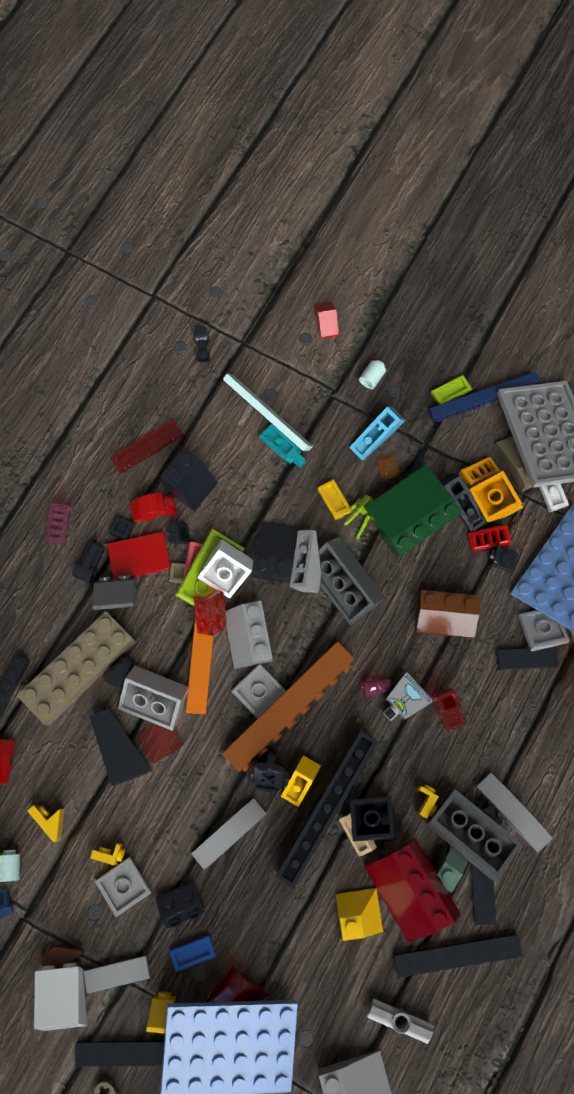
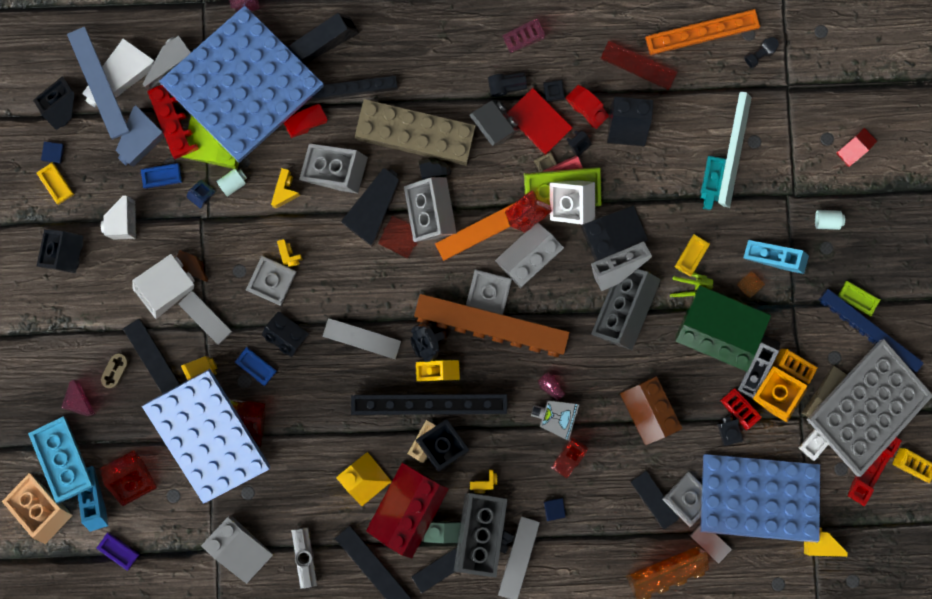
camera: 55 degrees right, 10 degrees up
(59, 761) = (334, 167): none -> light grey slope
(154, 381) = (702, 32): none -> orange tile
(486, 752) = (554, 509): none -> dark blue slope

